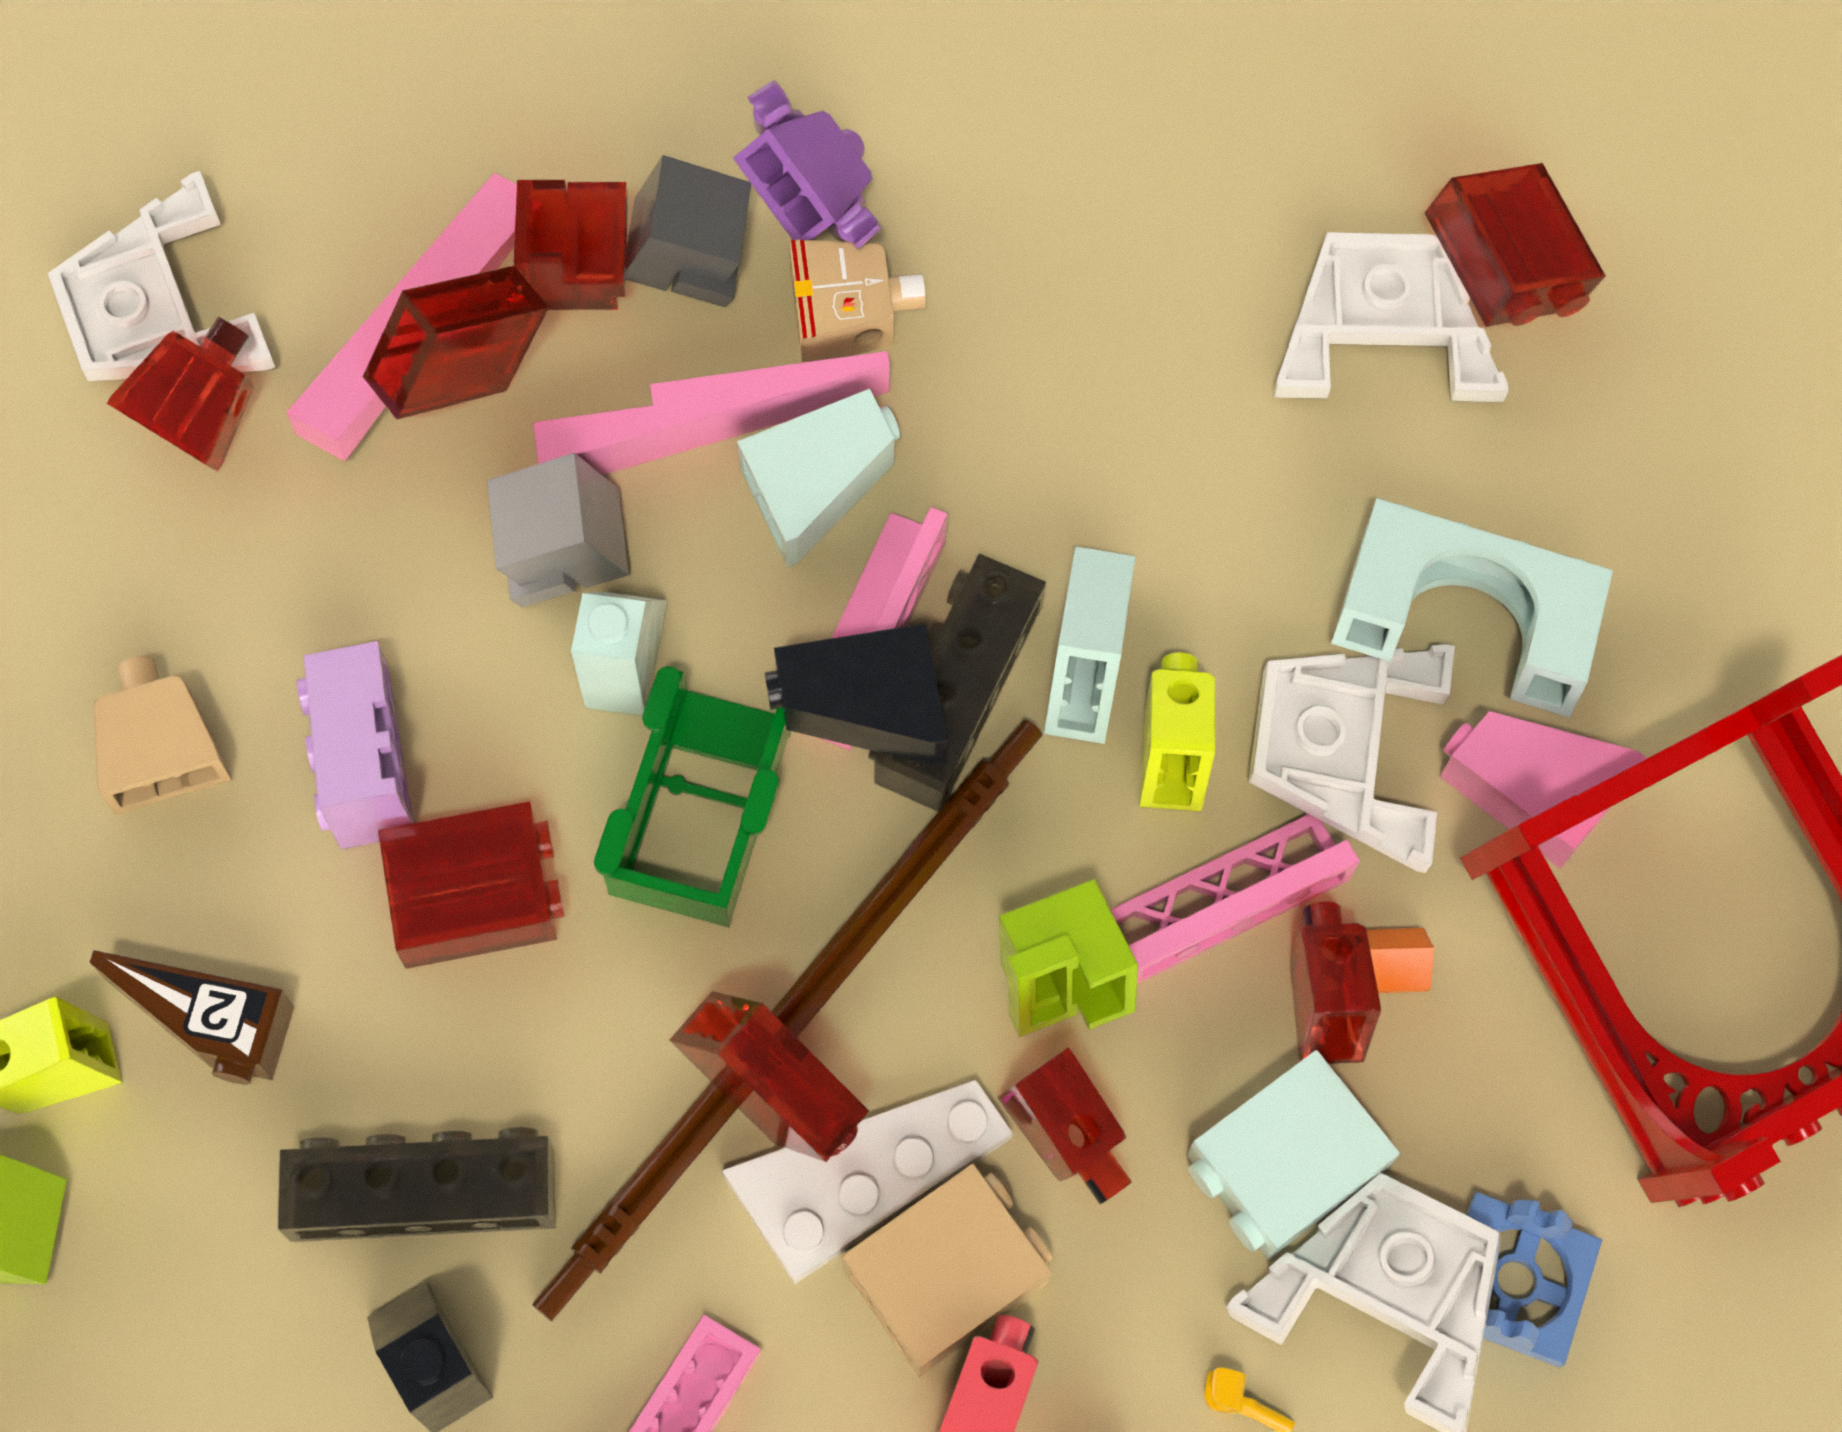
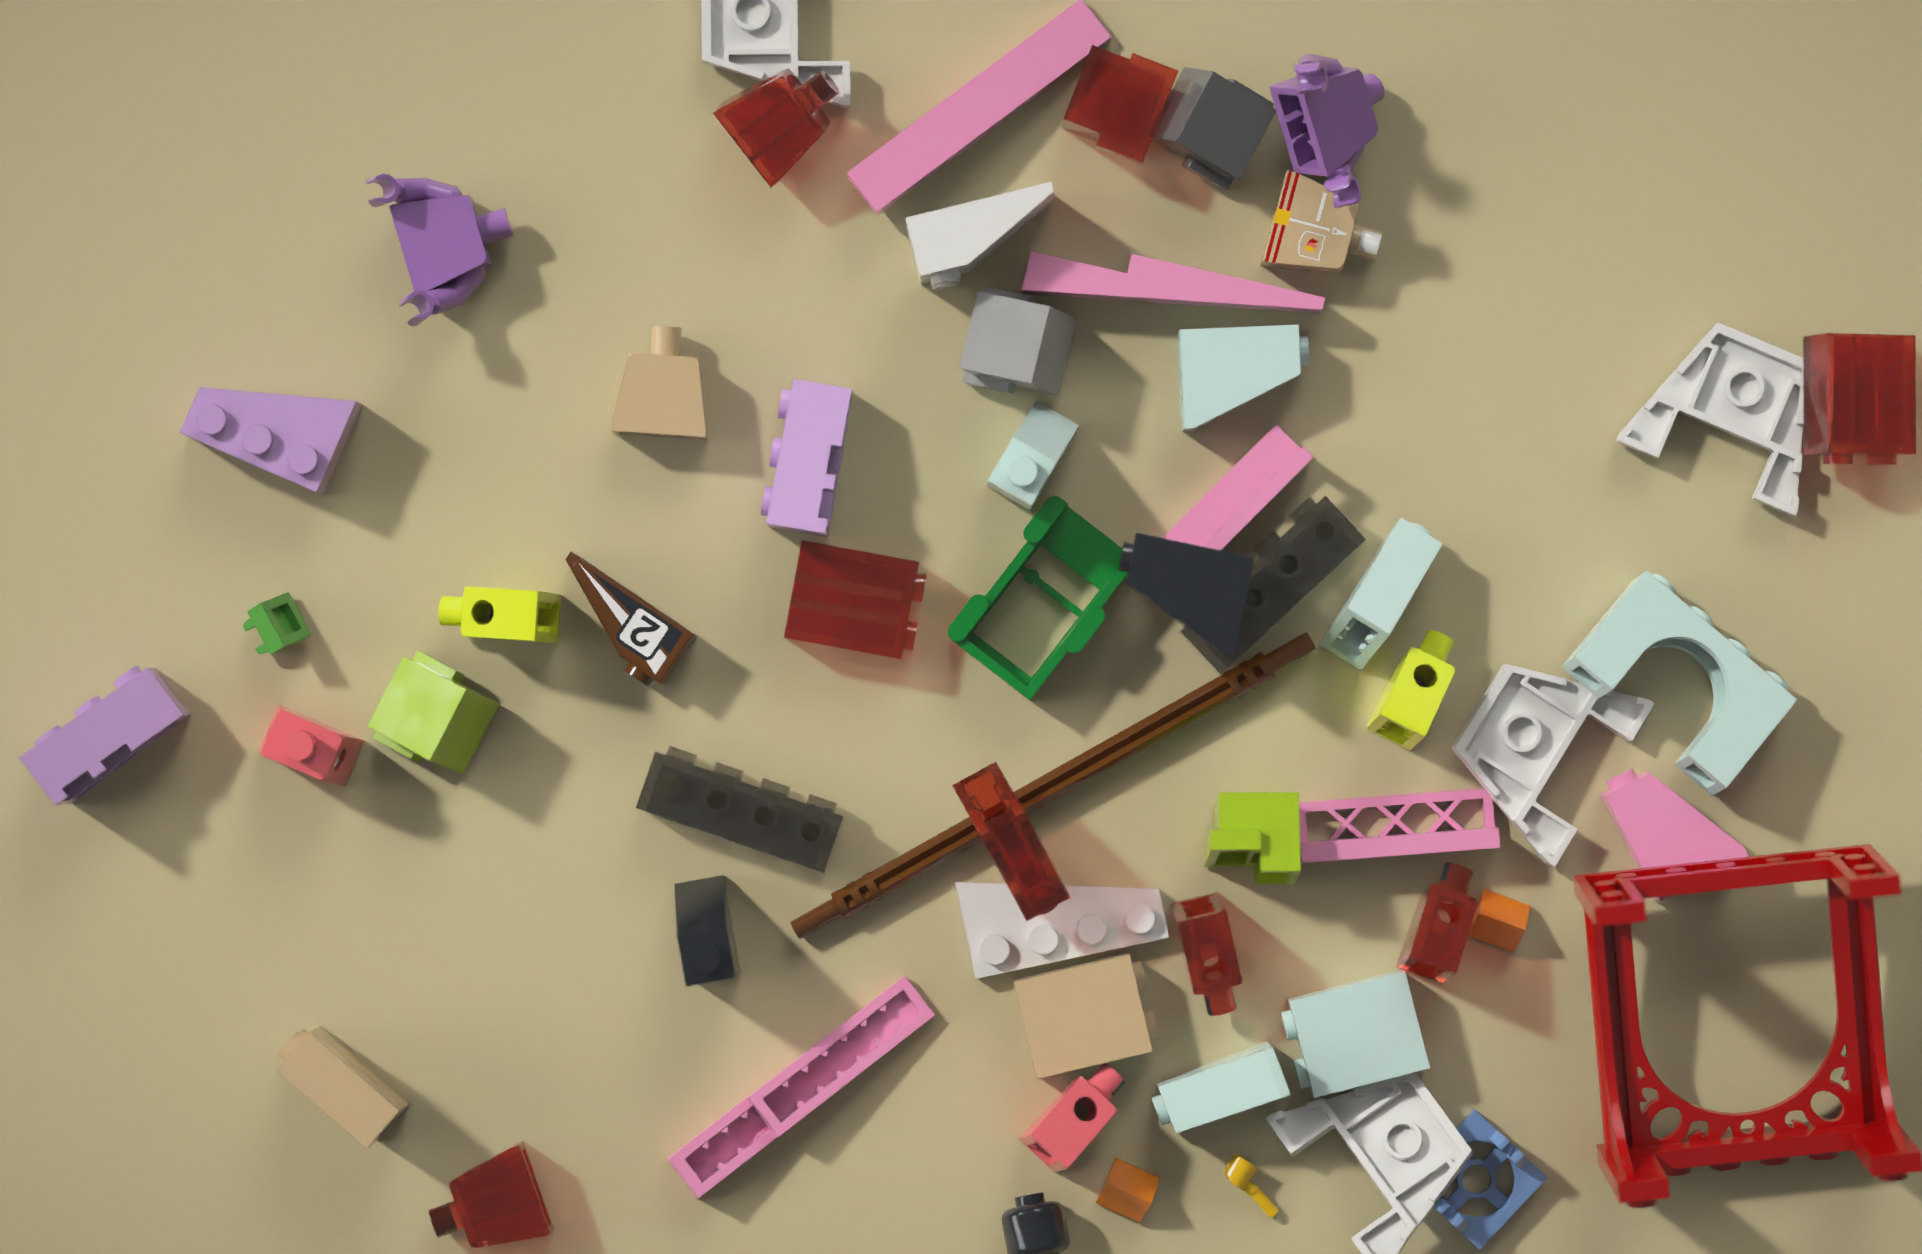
camera: 25 degrees right, 20 degrees up
(454, 341) = (995, 167): clear red brick -> none
(456, 423) = (963, 235): none -> white slope
(1158, 1284) = (1221, 1088): none -> light aqua slope

